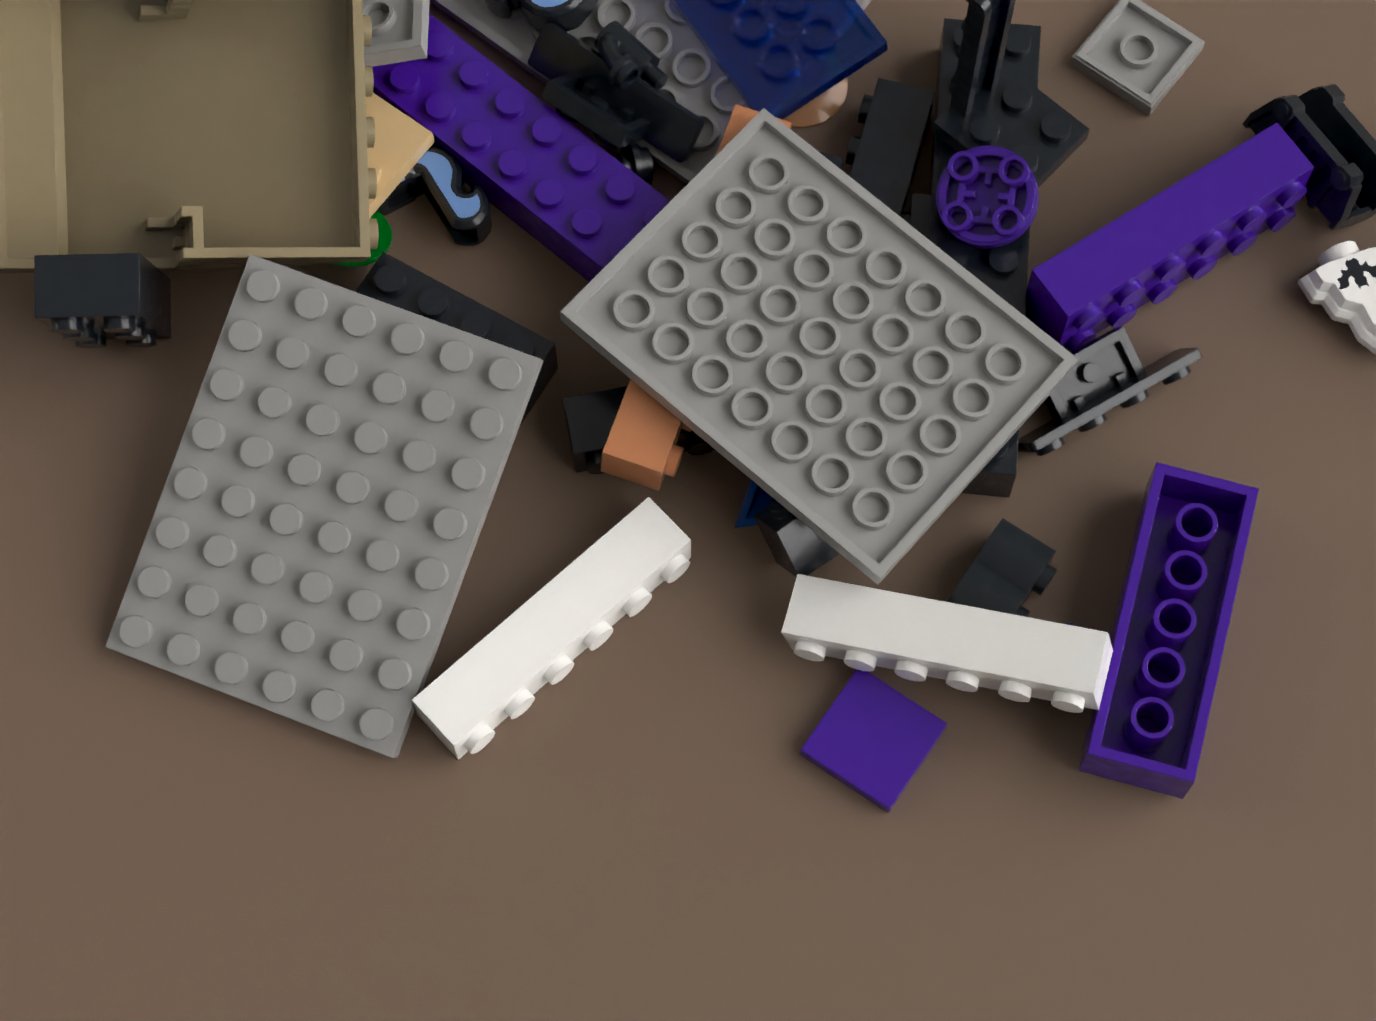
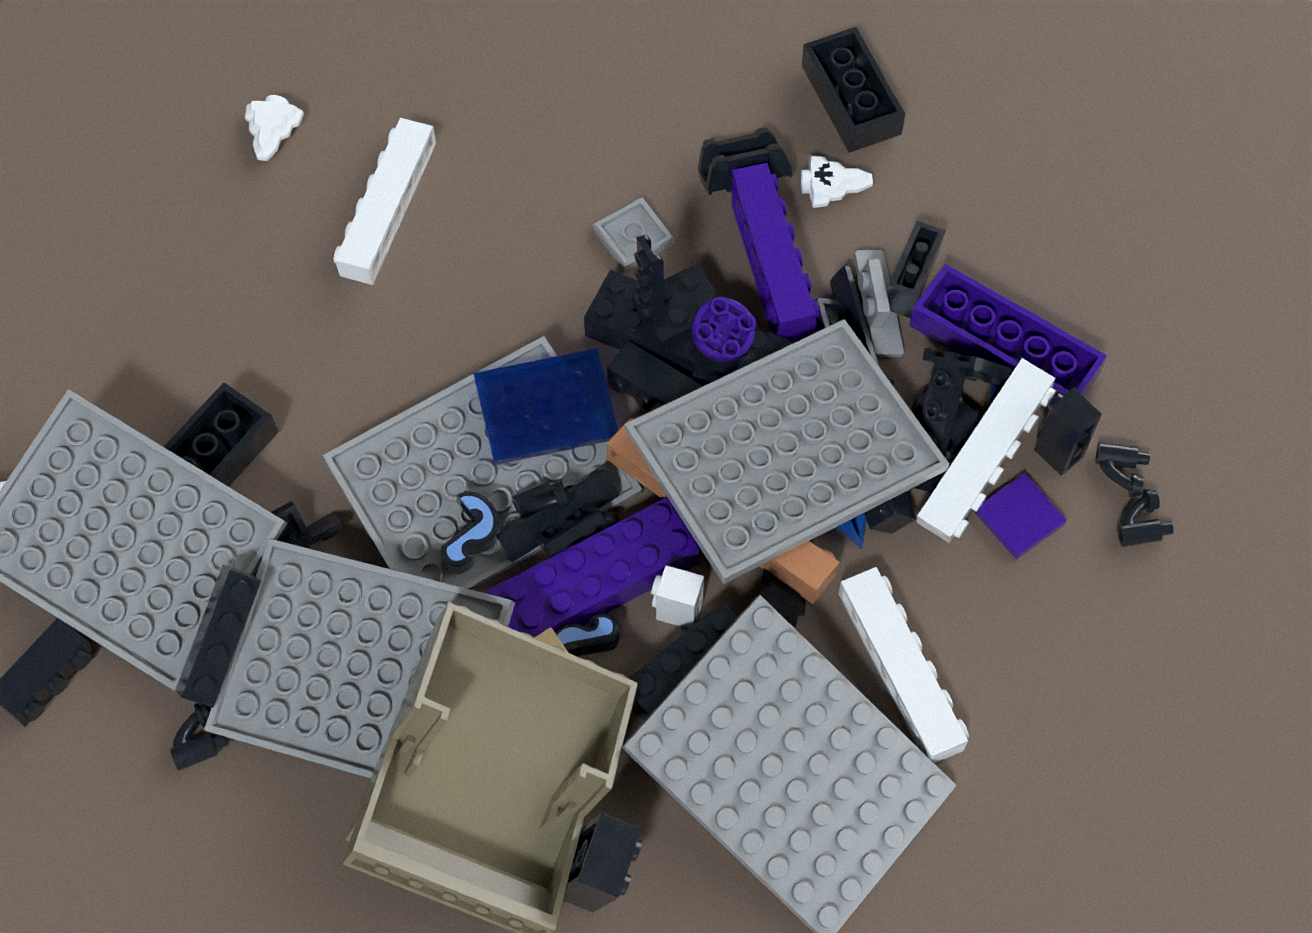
camera: 70 degrees left, 5 degrees down
(543, 284) = (678, 597): none -> white brick
(909, 924) = (1145, 531): none -> black plant
(1022, 749) = (1067, 430): none -> black brick
(1039, 867) = (1113, 455): none -> black plant
(1060, 536) = (945, 393): none -> black bracket
(1164, 423) = (881, 322): none -> light grey bracket
(1242, 449) = (914, 268): none -> black brick

